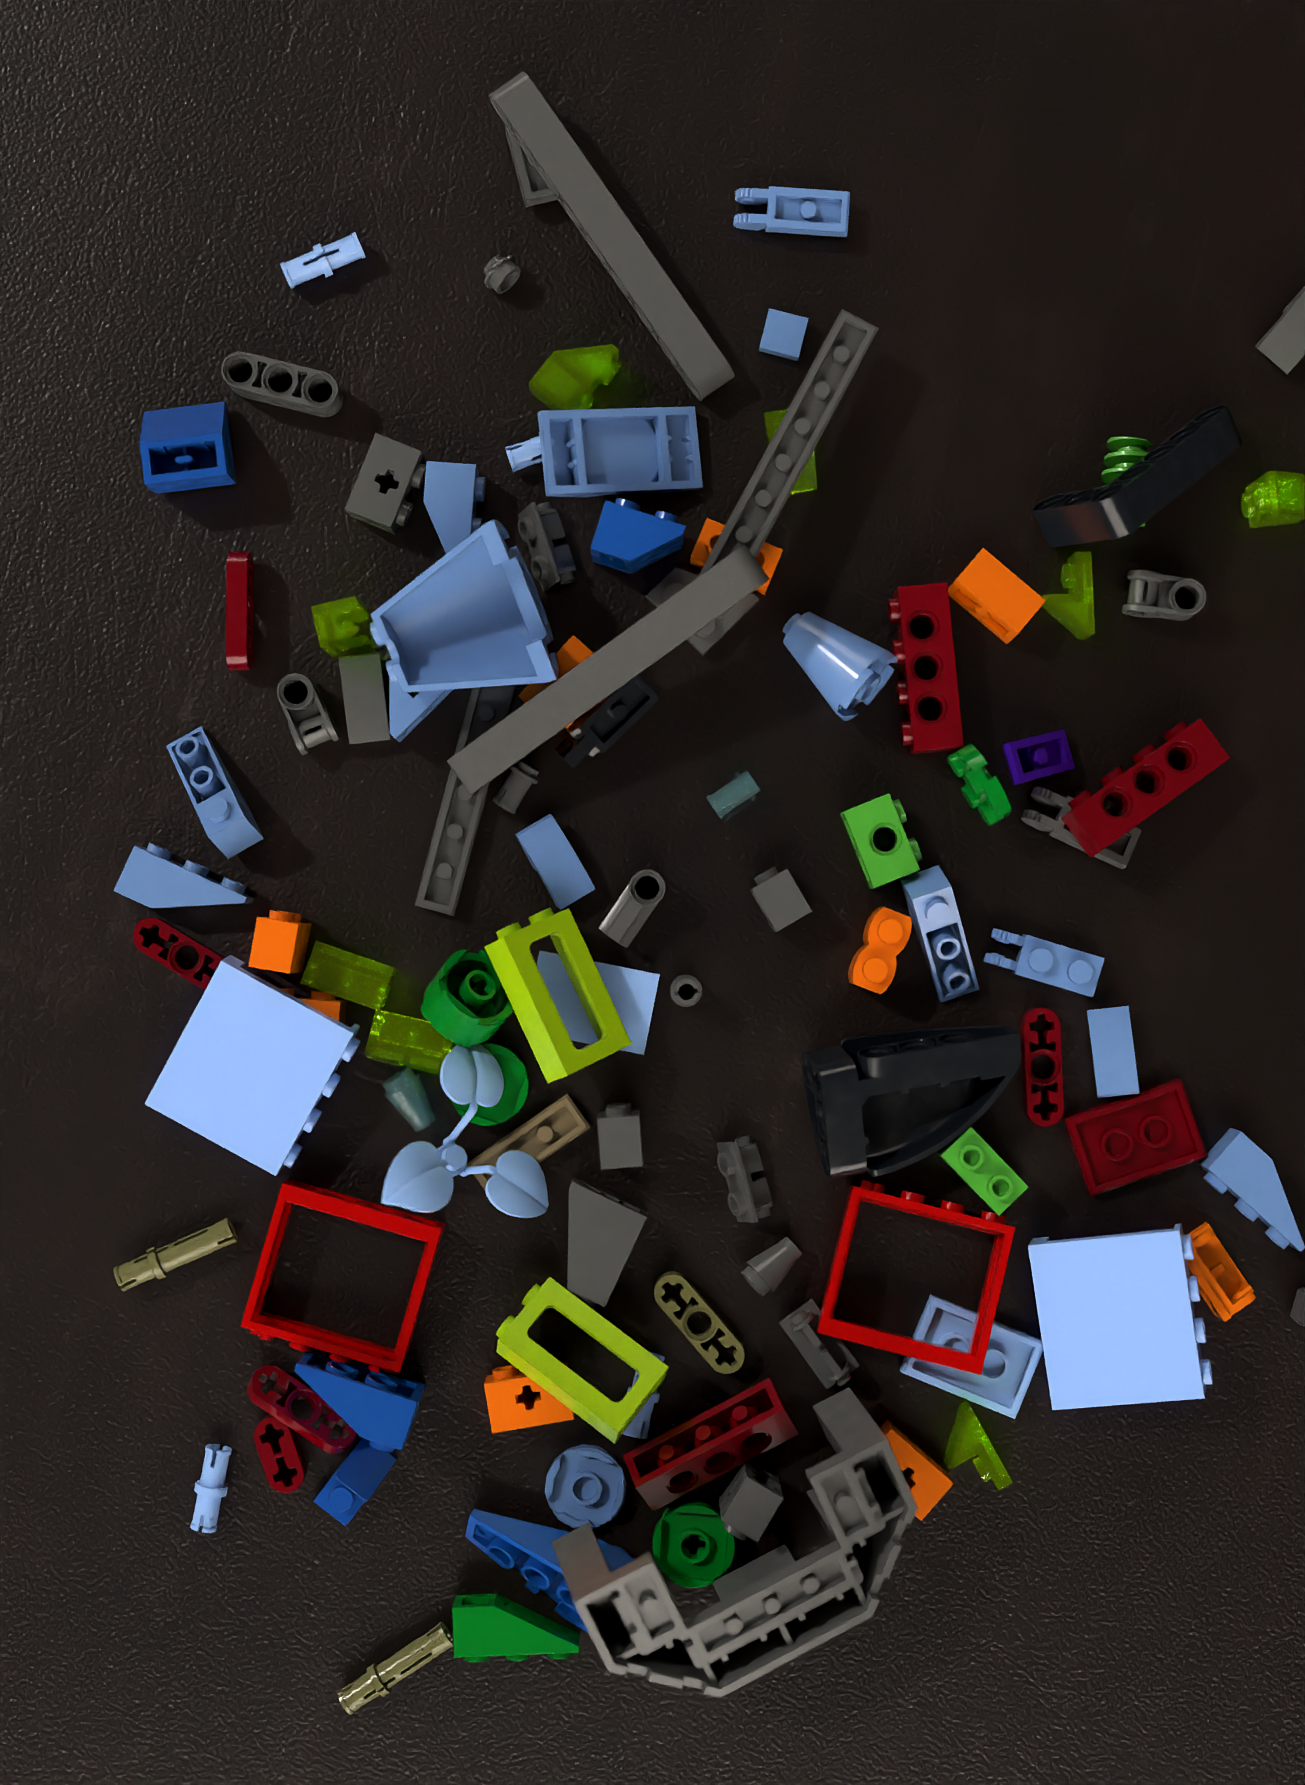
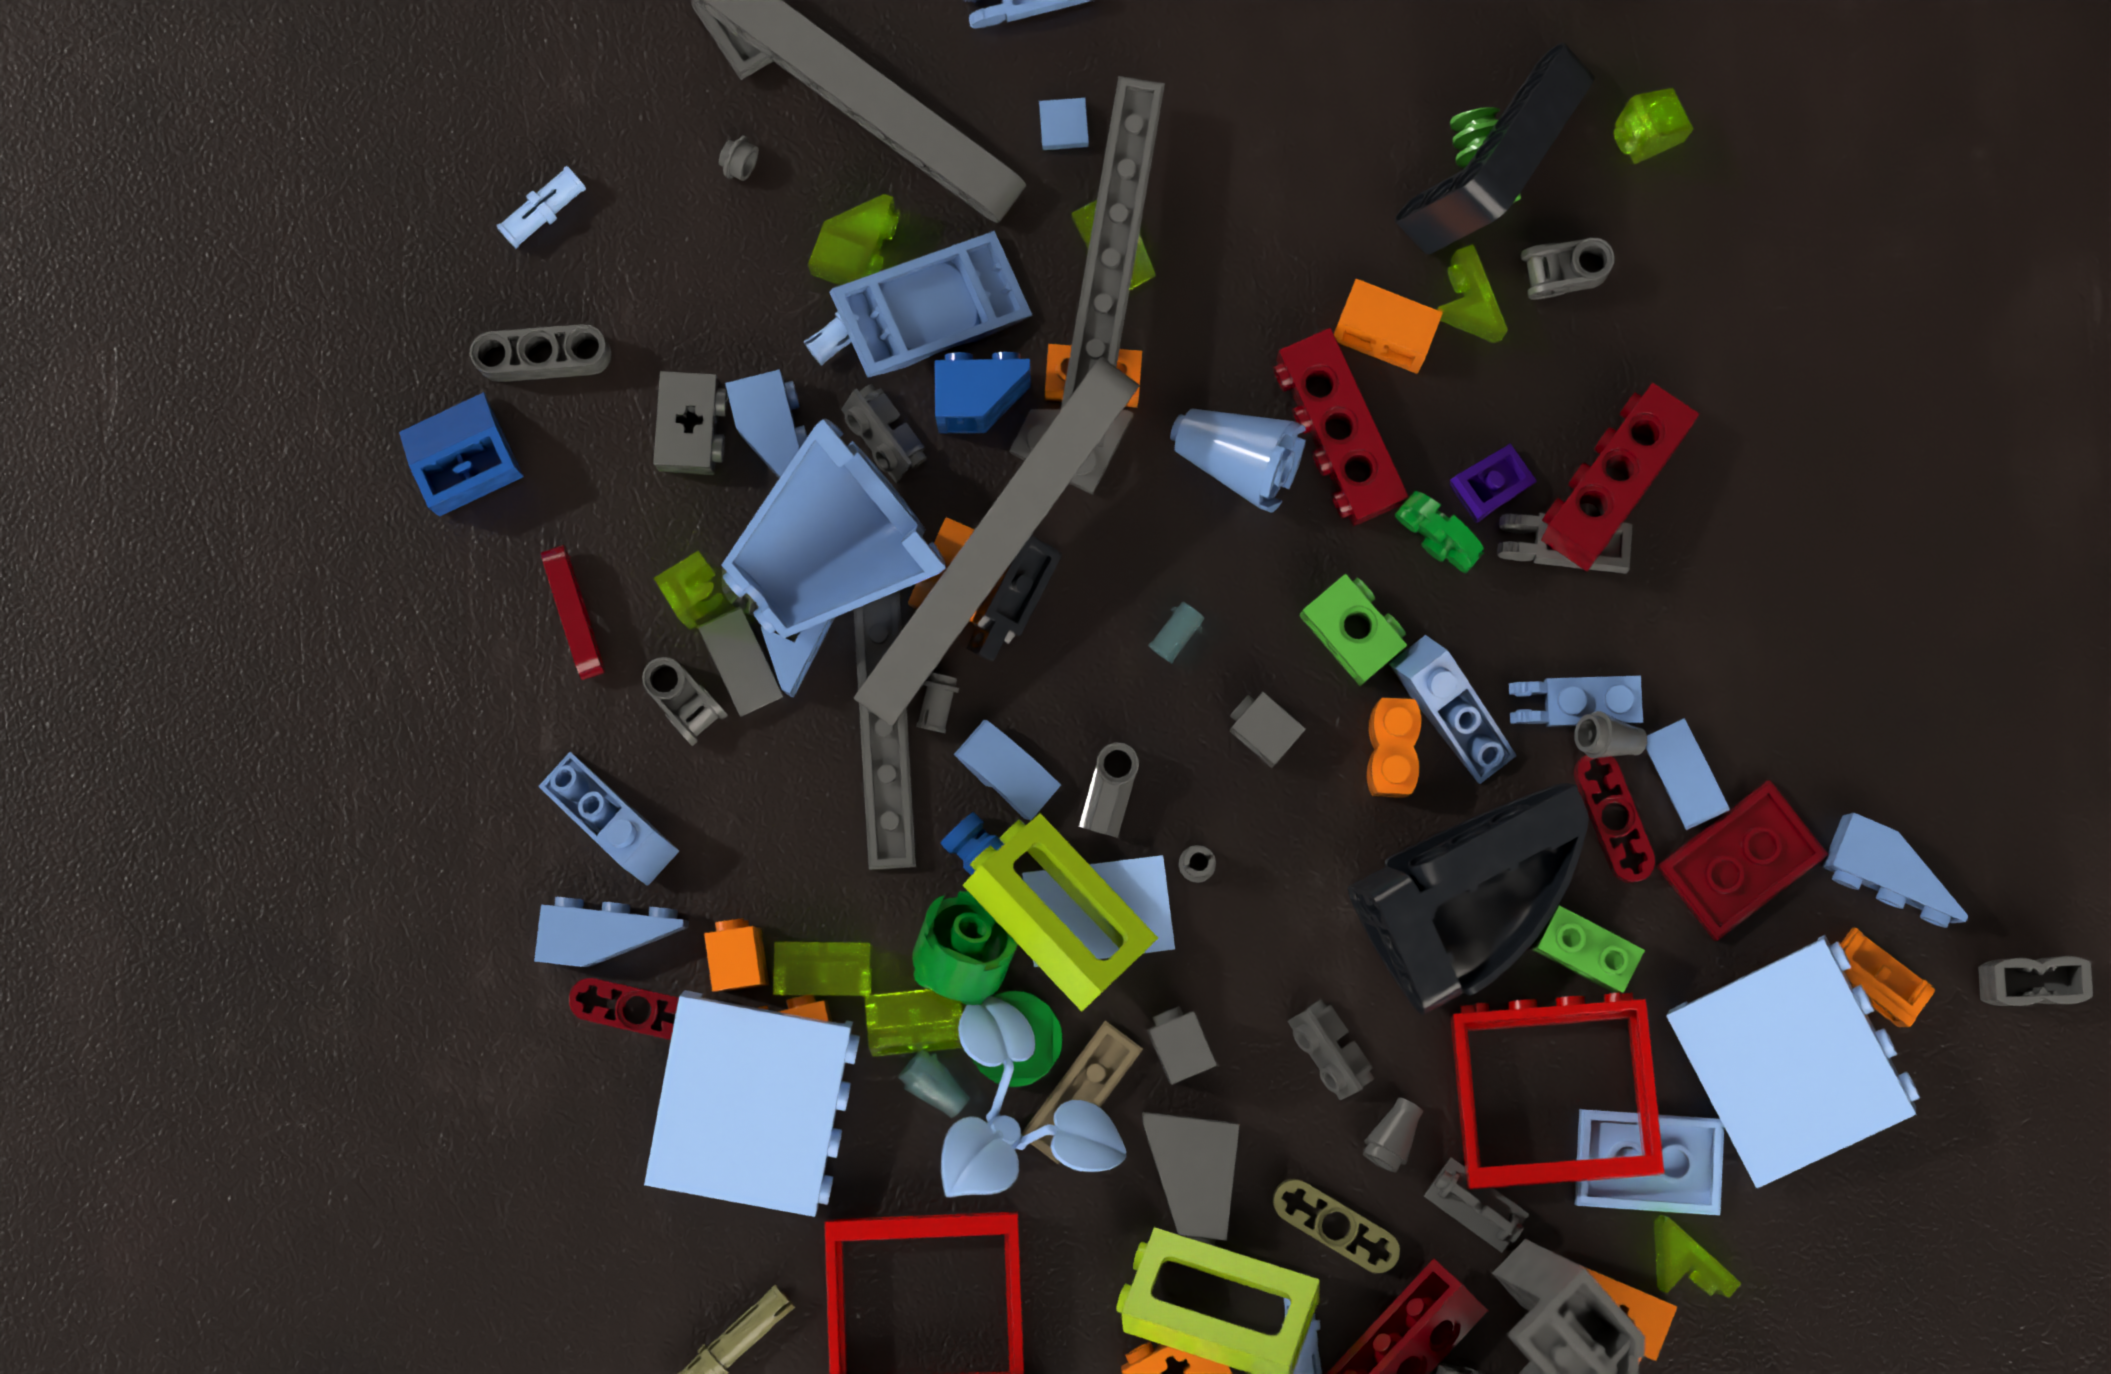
camera: 20 degrees left, 5 degrees down
(505, 910) = (969, 840): none -> blue wheel
(1058, 999) = (1606, 736): none -> dark grey cone

